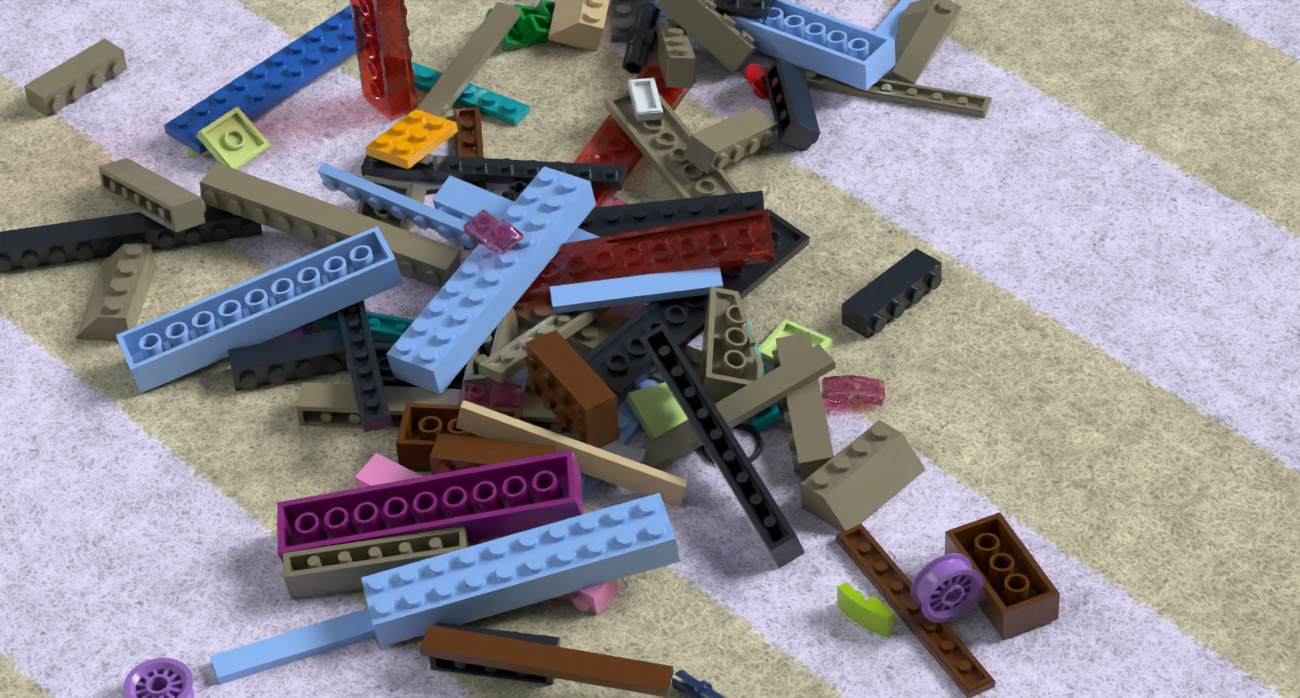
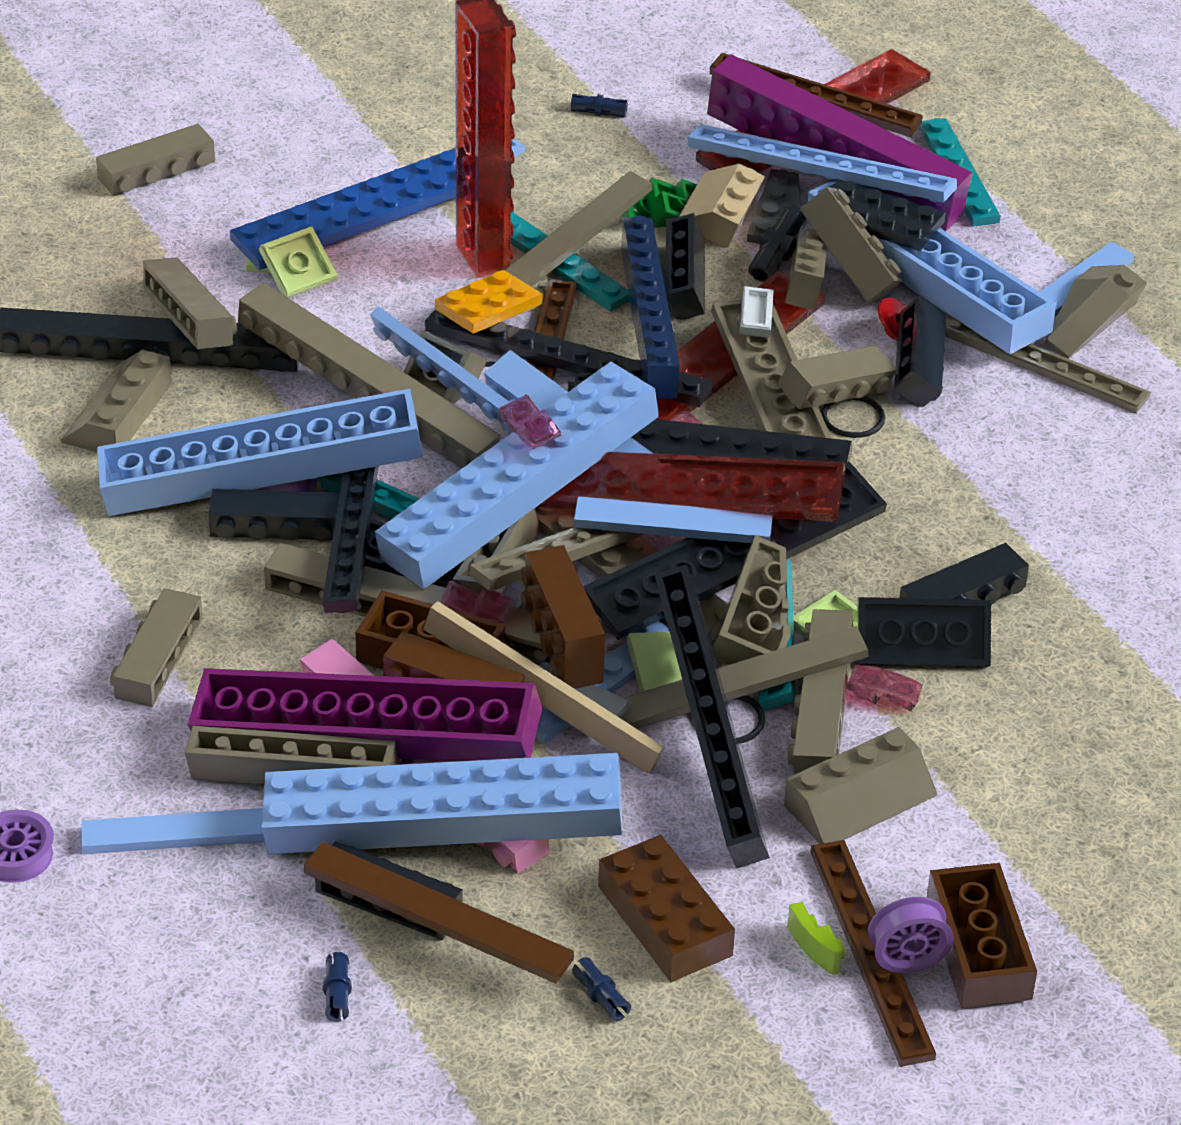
camera: 10 degrees right, 0 degrees up
(224, 495) = (157, 647): none -> dark tan brick
(552, 112) = (649, 307): none -> dark blue brick
(569, 74) = (685, 267): none -> black brick
(734, 613) = (666, 908): none -> reddish brown brick
(759, 185) = (875, 429): none -> black tyre
(874, 335) = (925, 631): none -> black plate

